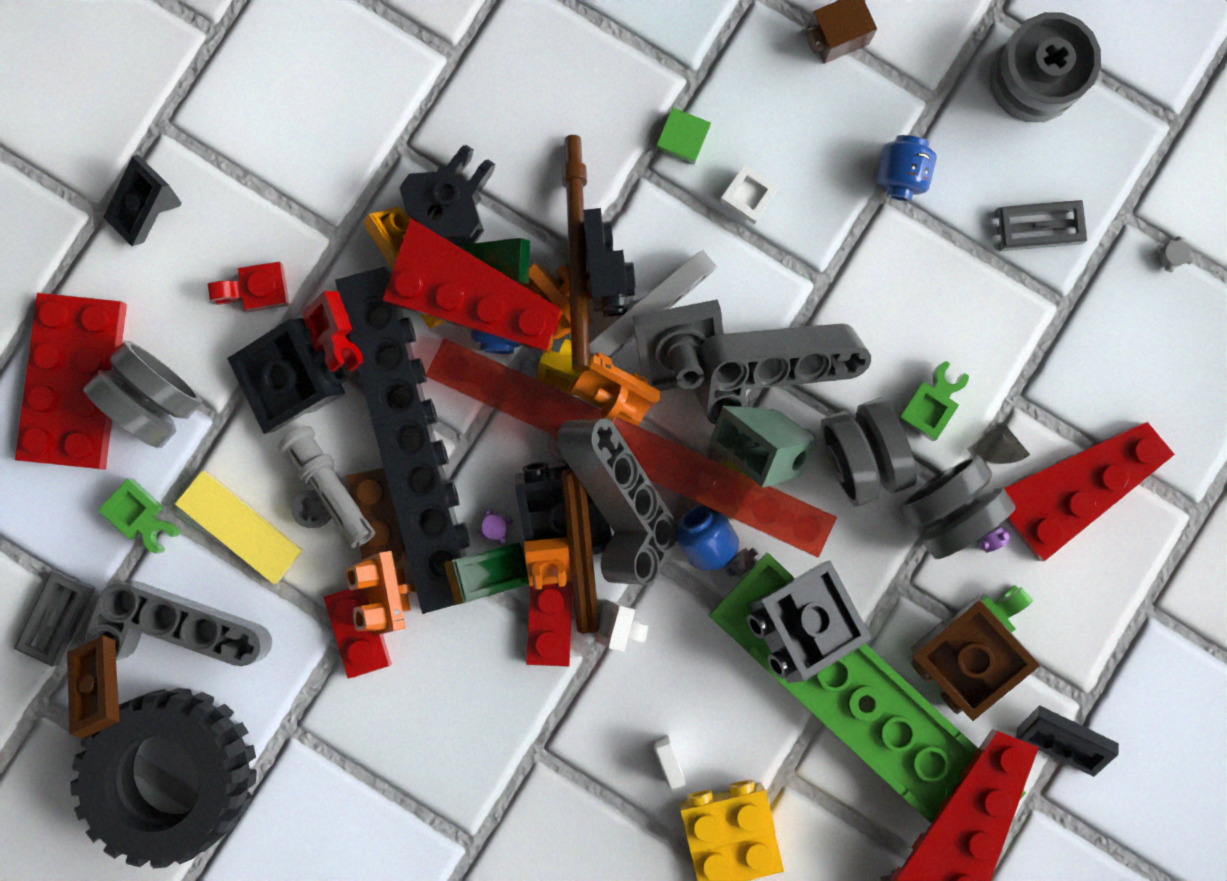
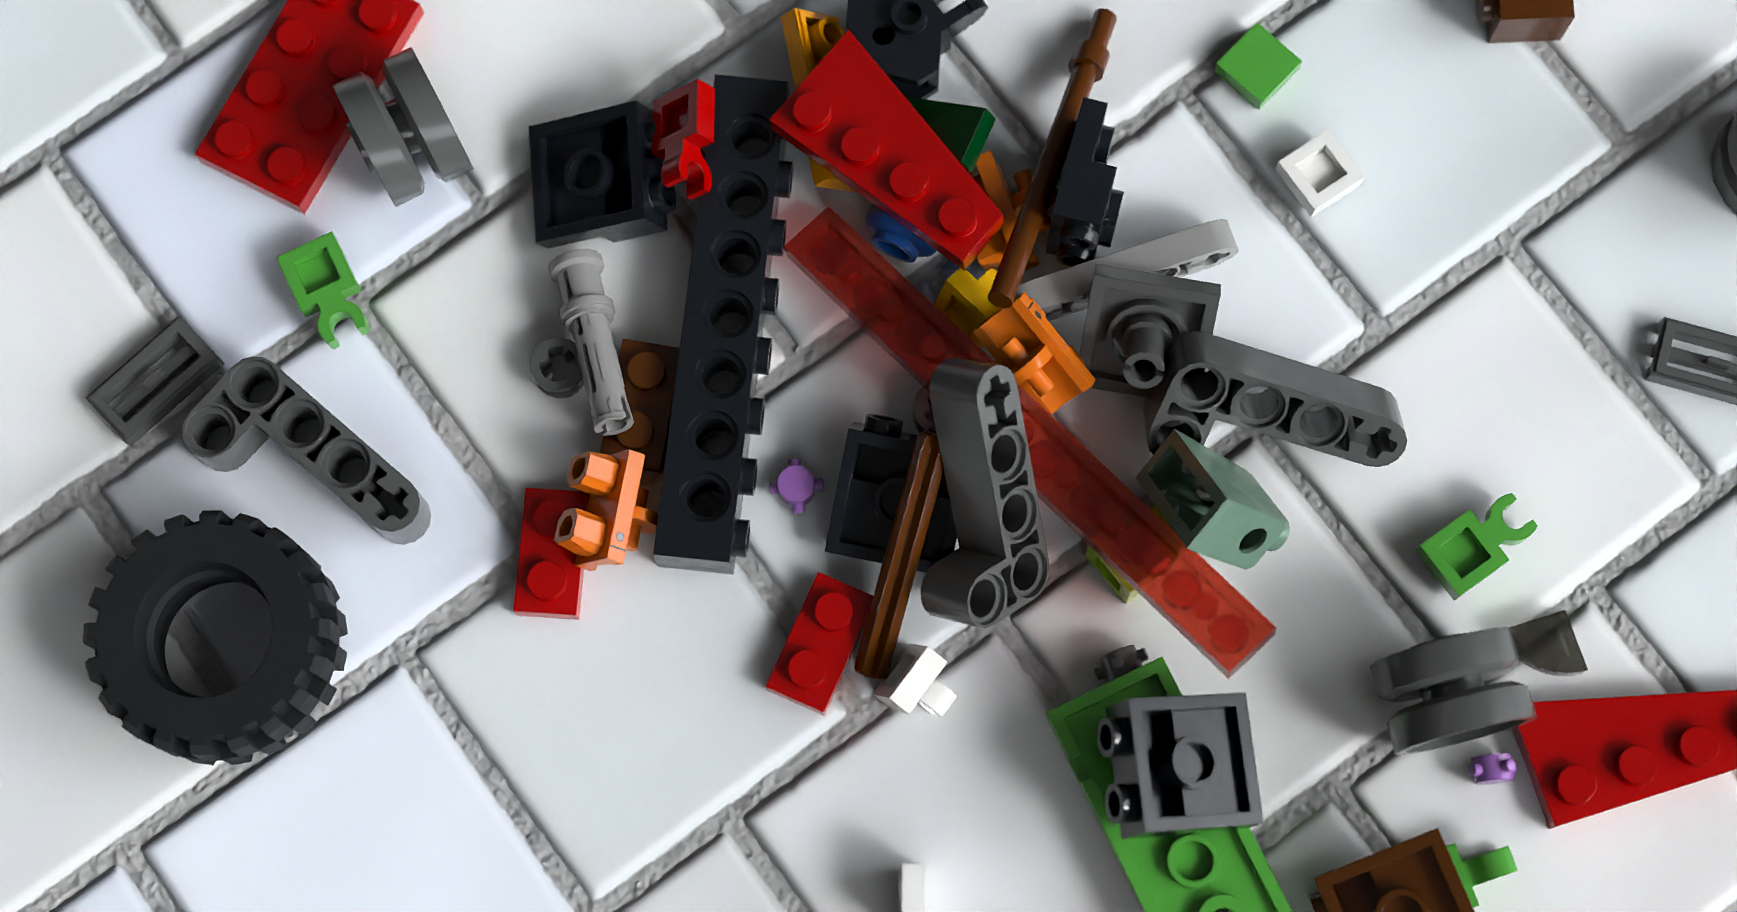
camera: 25 degrees right, 10 degrees down
(92, 687) = (179, 471): reddish brown plate -> none
(239, 527) = (451, 355): light yellow tile -> none
(258, 288) = (607, 55): red plate -> none
(486, 573) = (763, 536): dark green tile -> none
(548, 562) = (851, 553): orange tile -> none
(707, 538) = (1084, 608): blue head -> none
(869, 451) = (1355, 569): dark grey wheel -> none
(906, 167) = (1550, 214): blue head -> none

